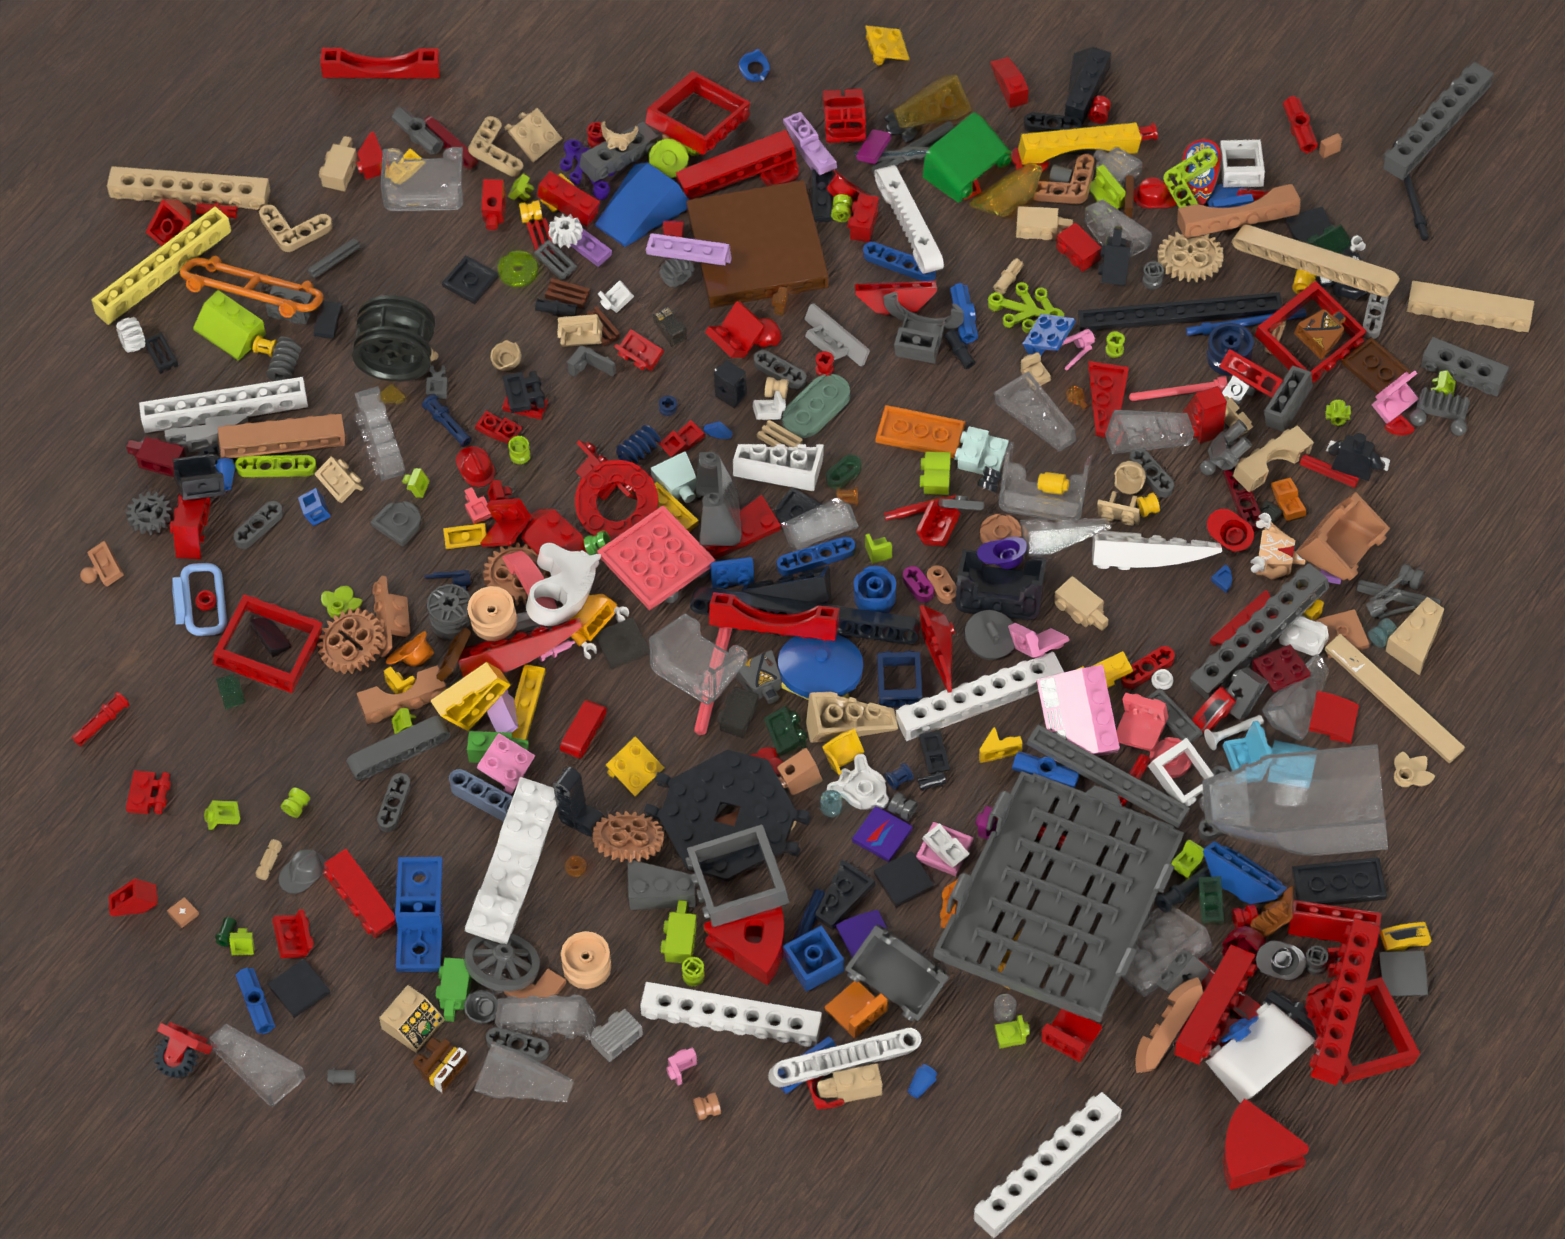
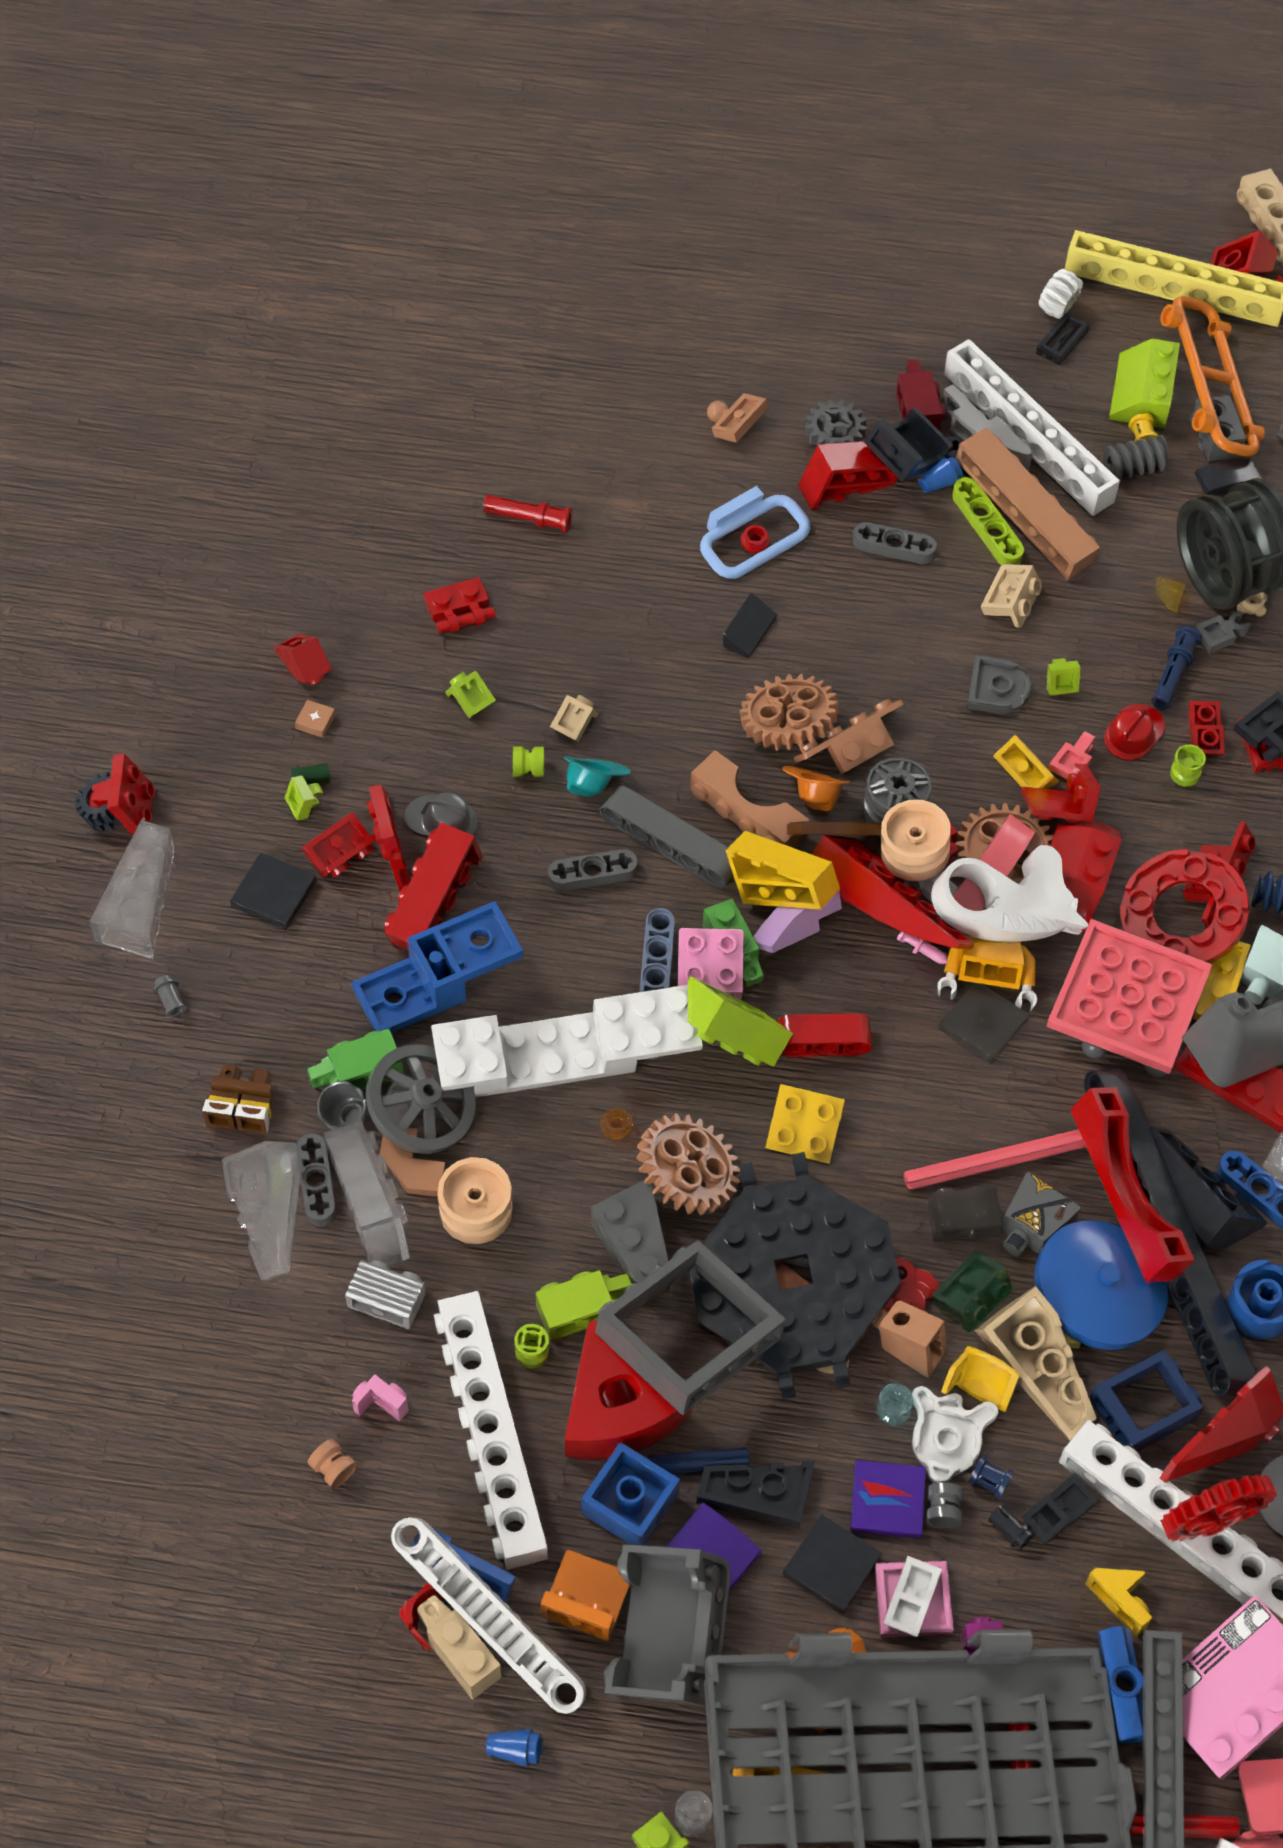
camera: 60 degrees right, 0 degrees up
(230, 691) = (642, 620): clear green window -> none
(252, 990) = (238, 838): blue piece -> none
(260, 671) = (728, 673): red window -> none
(268, 859) = (436, 773): tan axle -> none
(278, 762) = (574, 717): none -> tan bracket
(296, 898) = (387, 833): none -> red wing
(314, 507) = (954, 585): blue brick -> none
(328, 769) = (591, 776): none -> teal piece
(340, 601) = (843, 677): lime plate -> none
(379, 434) = (1102, 601): clear wedge -> none
(397, 682) = (764, 788): yellow bracket -> none
(402, 720) = (712, 822): lime tile -> none
(411, 1019) = (287, 1034): tan slope -> none
(459, 578) = (957, 788): dark blue plant -> none
(497, 492) = (1108, 775): red tile -> none
(527, 699) = (824, 949): yellow plate -> none
(548, 768) = (735, 1024): none -> lime slope
(571, 802) = (693, 1068): black beam -> none
(594, 543) = (1107, 913): bright green wheel -> none
(692, 661) = (1006, 1115): clear windscreen -> none
(732, 572) = (1175, 1102): blue bracket -> none
(988, 660) = (1218, 1507): none -> red gear

